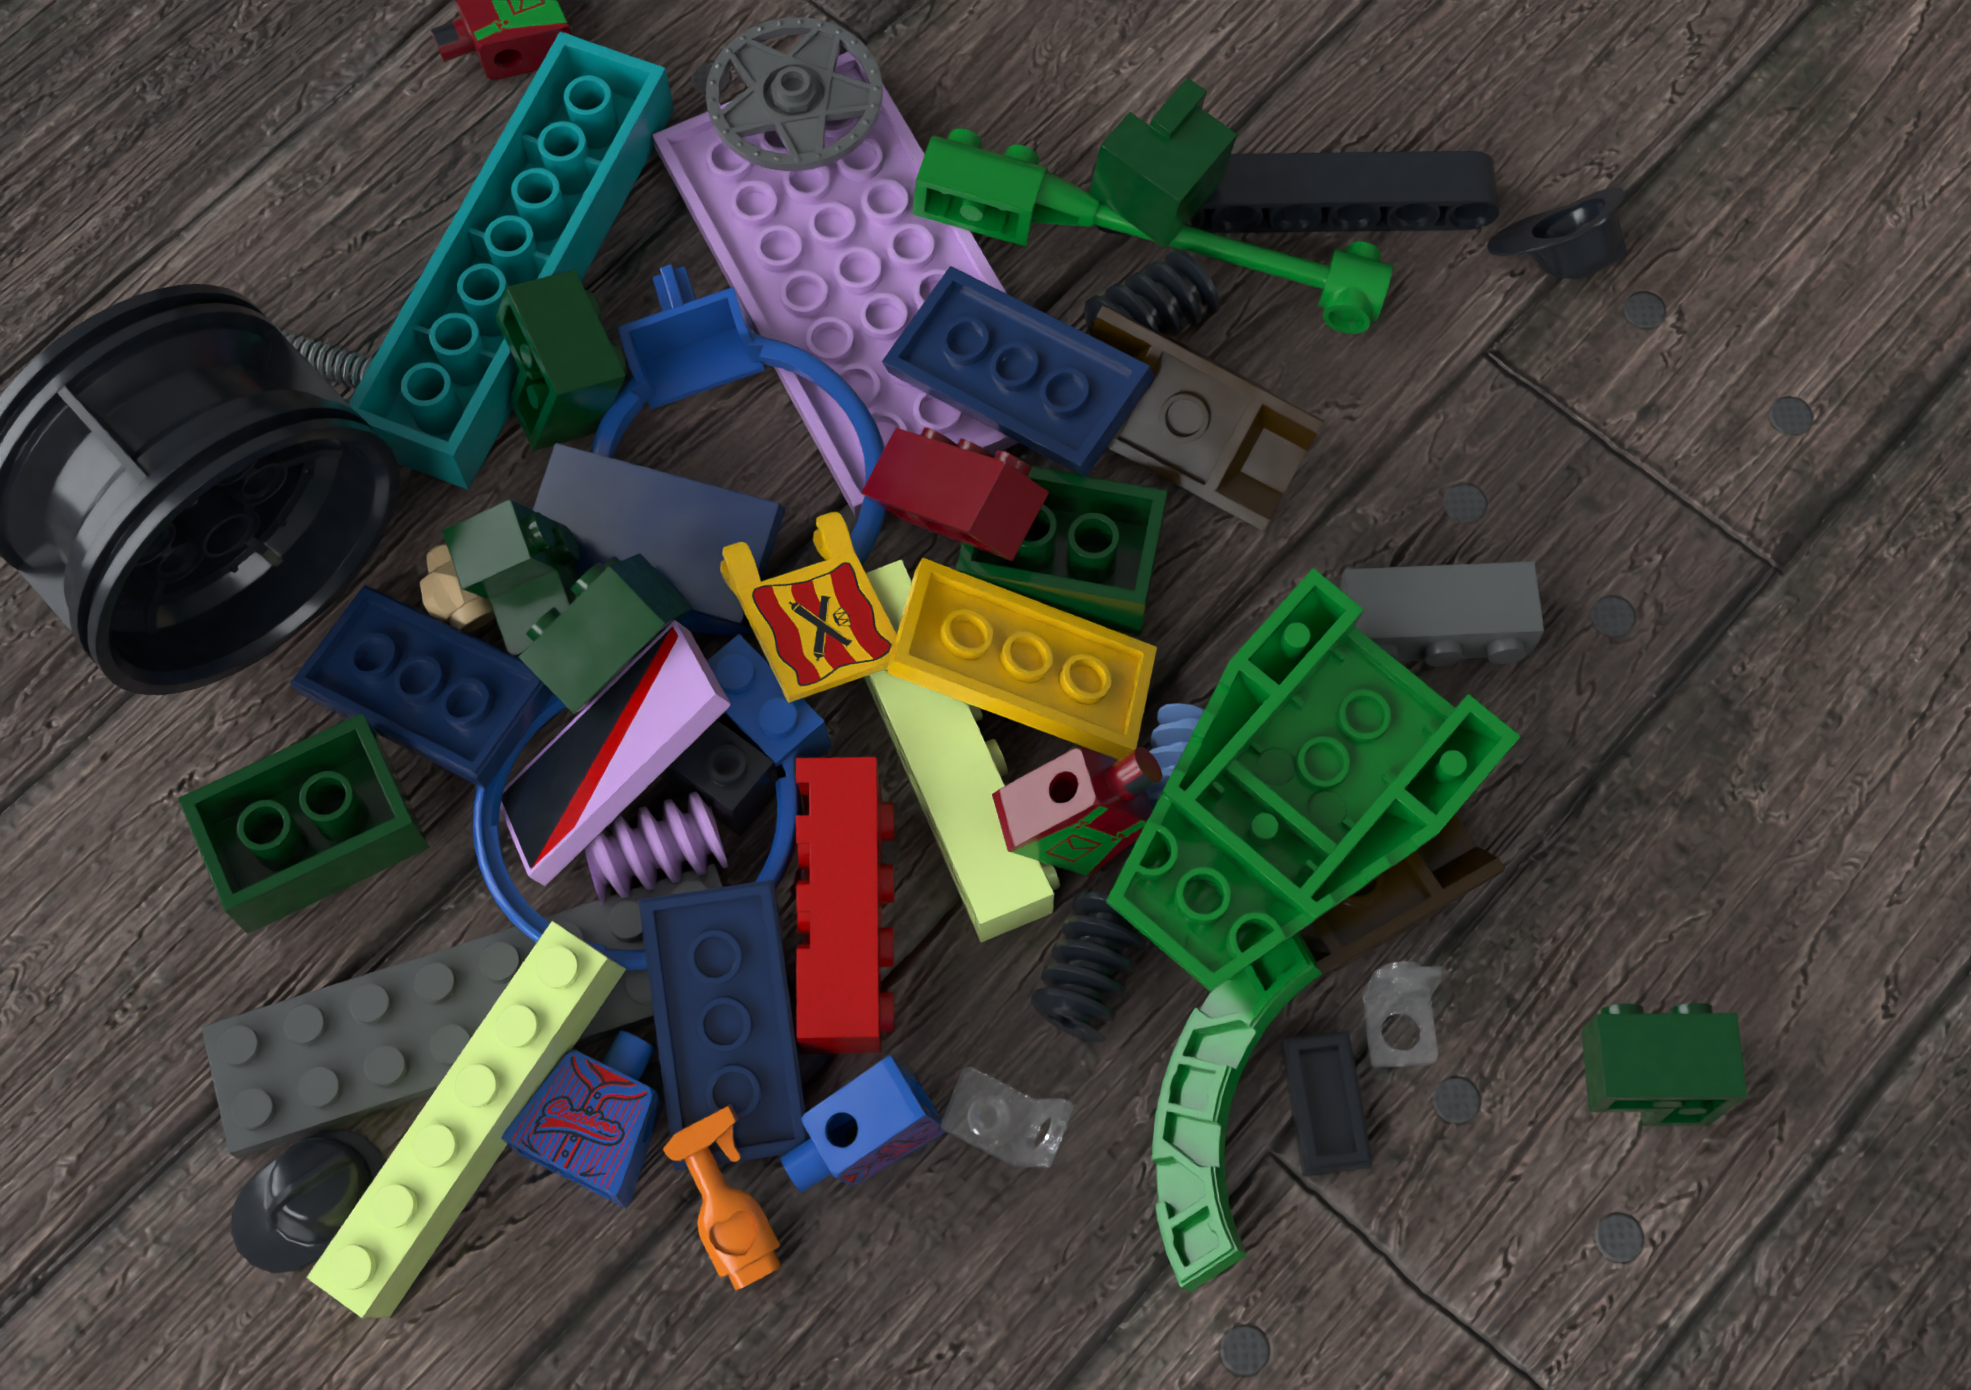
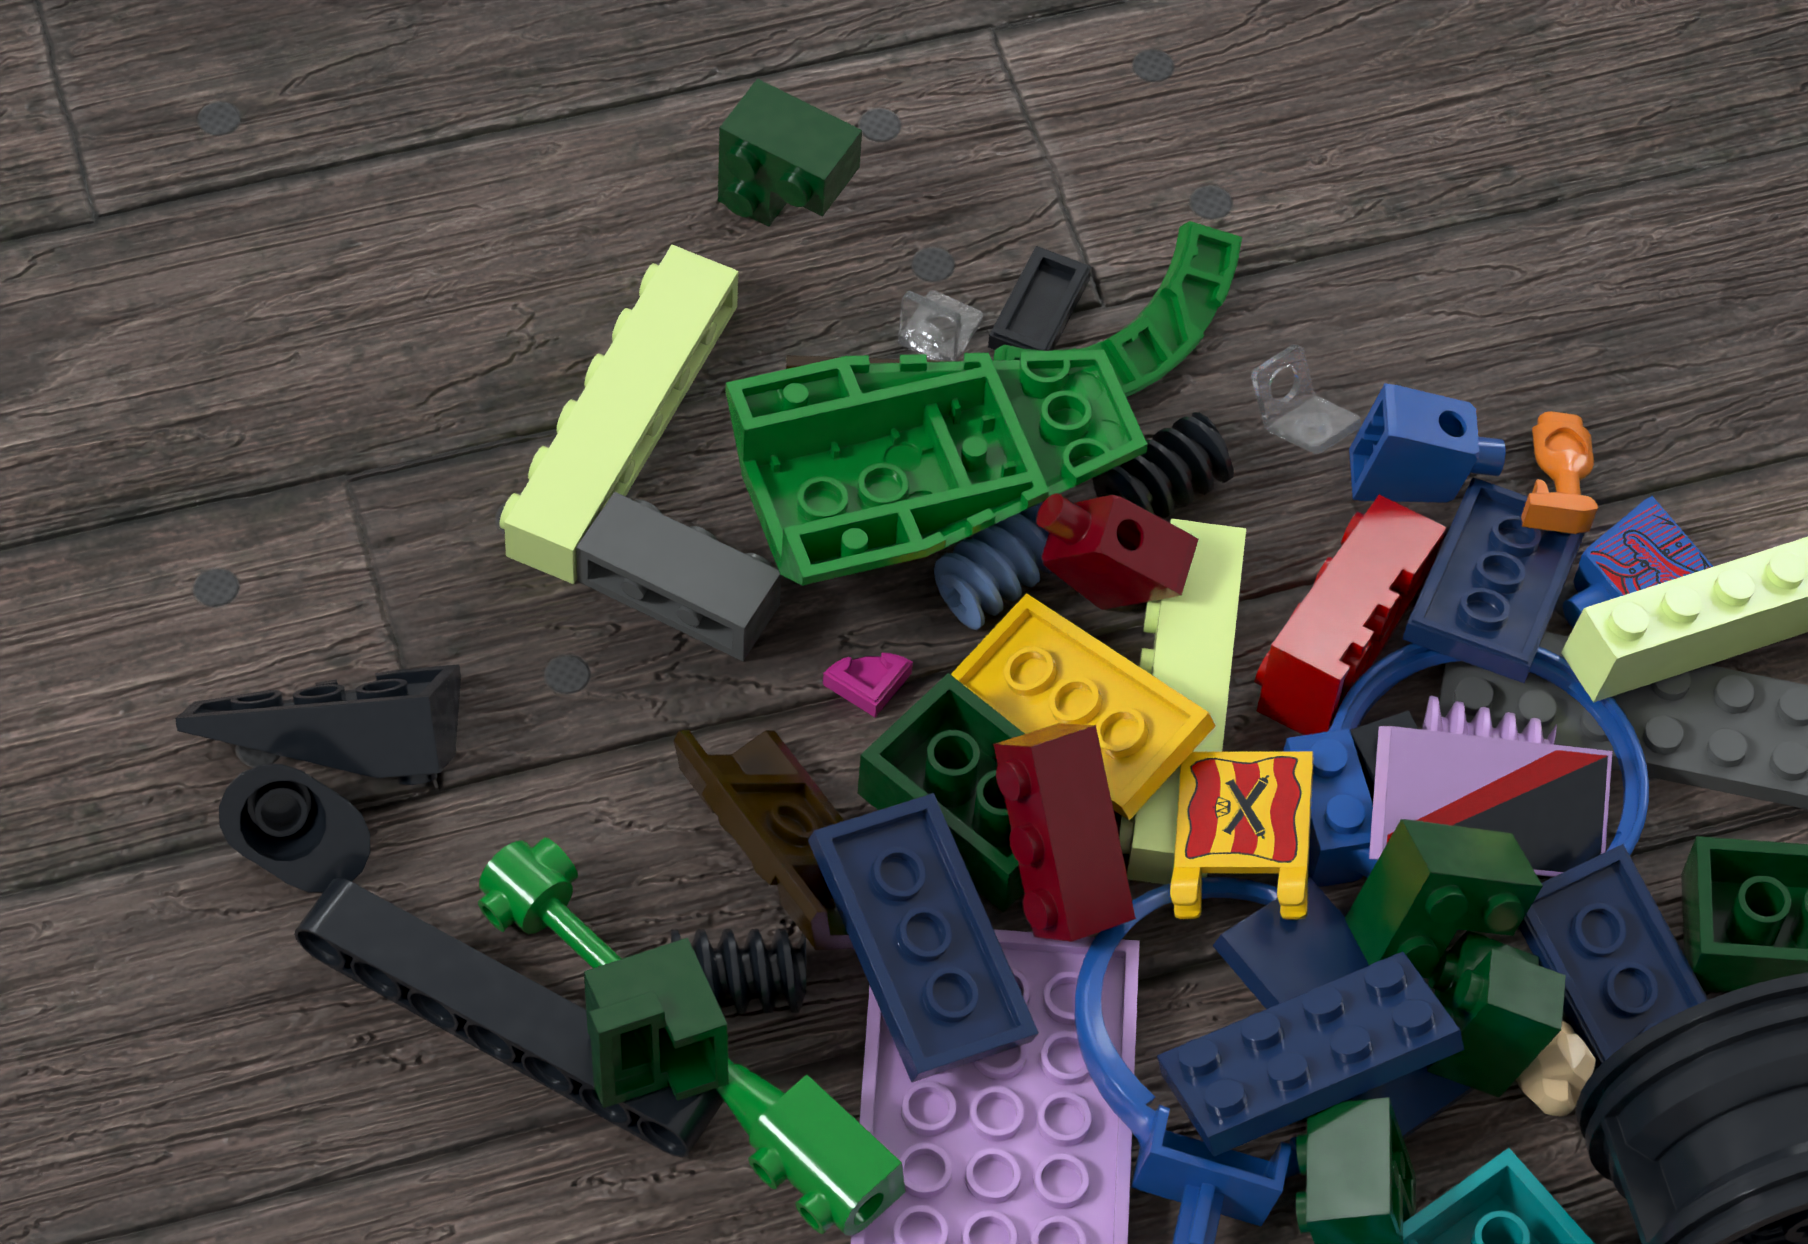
camera: 155 degrees left, 10 degrees down
(645, 425) = (1309, 1053): none -> dark blue plate
(1222, 629) = (868, 680): none -> dark pink tile
(1586, 343) = (379, 730): none -> black wedge
(1607, 749) = (622, 409): none -> yellowish green brick

